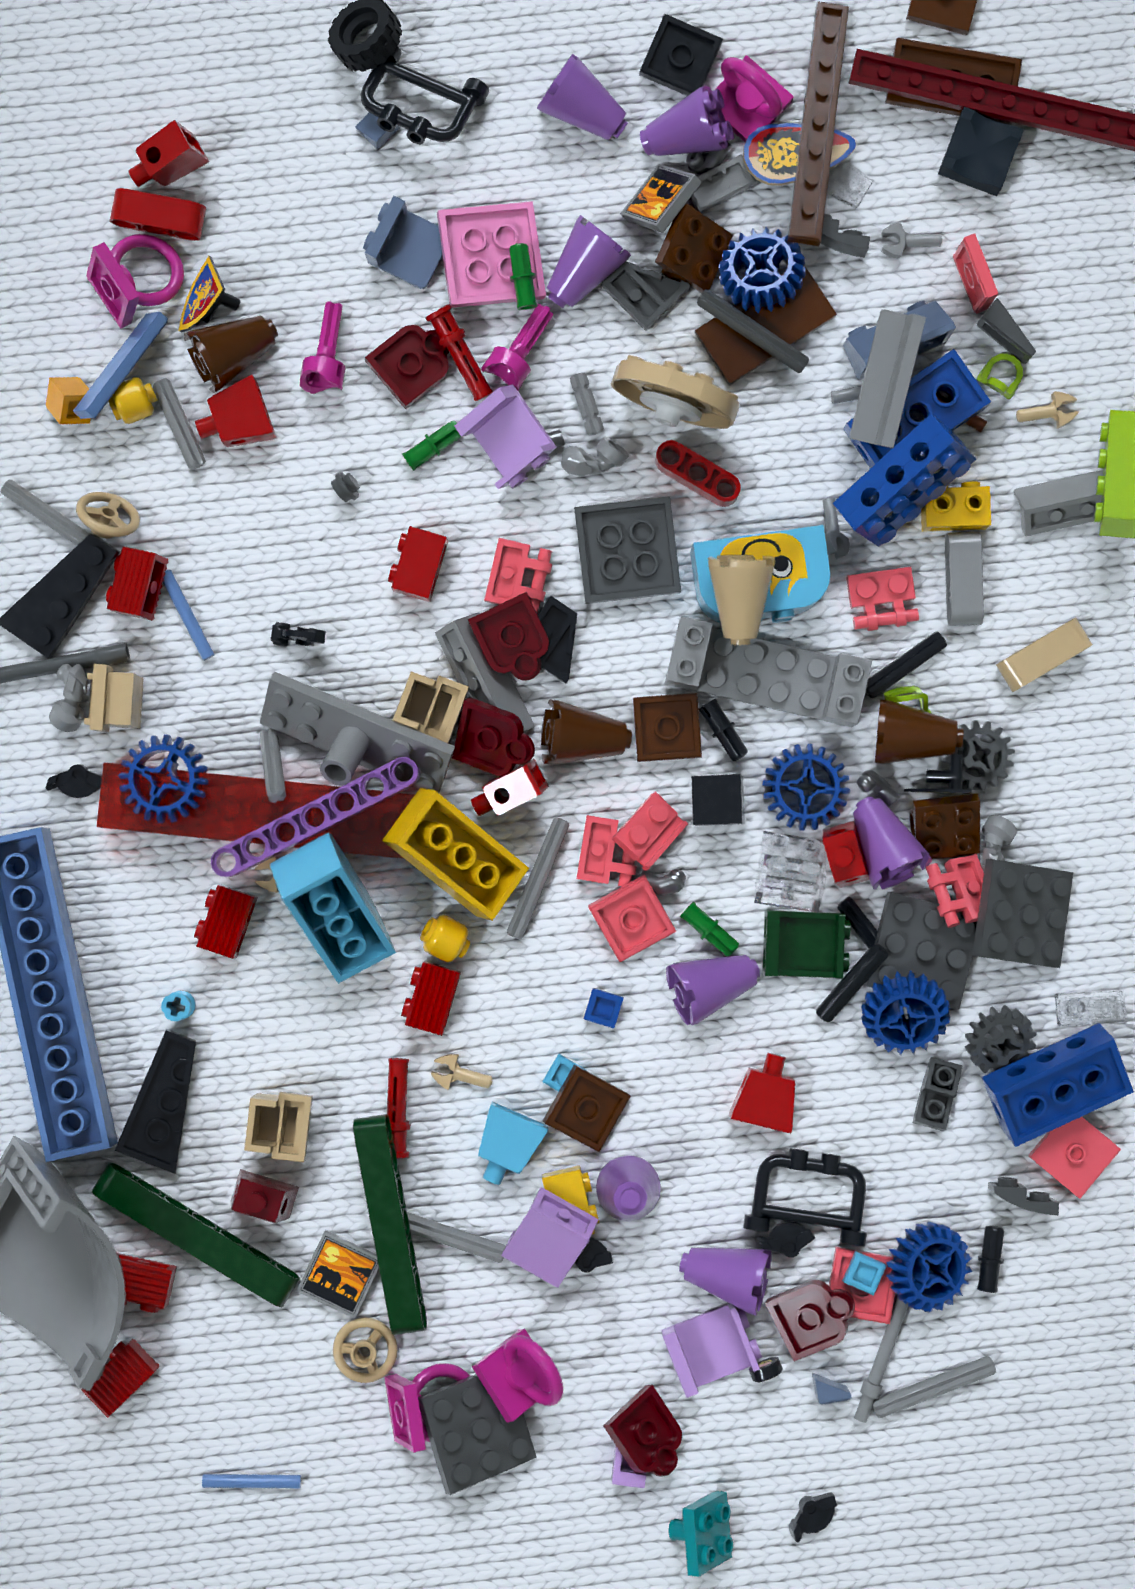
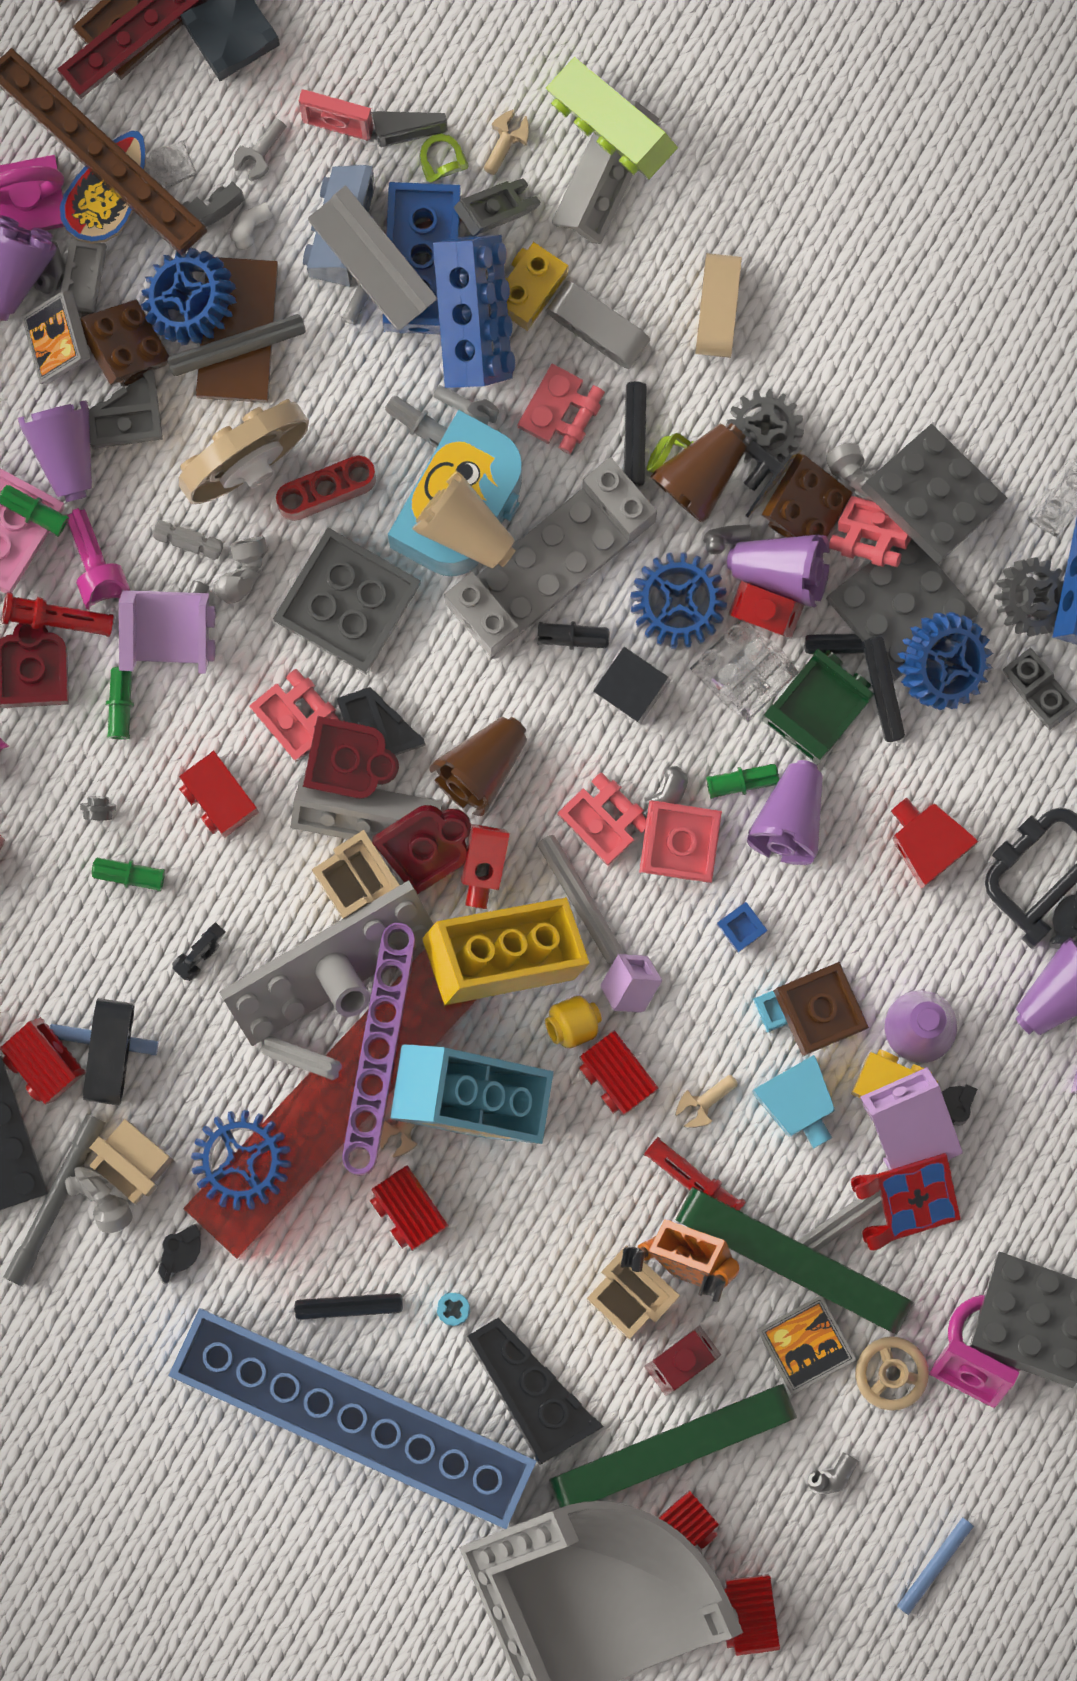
camera: 55 degrees left, 5 degrees down
(127, 929) = (348, 1306): none -> black axle
(177, 625) = (108, 1051): none -> black beam
(259, 1364) = (833, 1479): none -> flat silver arm
(316, 543) = (128, 874): none -> green axle
(335, 1148) = (688, 1257): none -> orange torso
(497, 1274) = (912, 1199): none -> red flag
(504, 958) = (631, 983): none -> lavender panel
(519, 1376) = (1017, 1247): dark pink tile -> none
(649, 831) = (614, 767): coral plate -> none
(667, 727) = (532, 683): reddish brown plate -> none
(795, 501) = (418, 422): none -> light grey axle
(847, 270) = (245, 224): none -> white arm
(994, 439) = (495, 206): none -> dark grey hinge

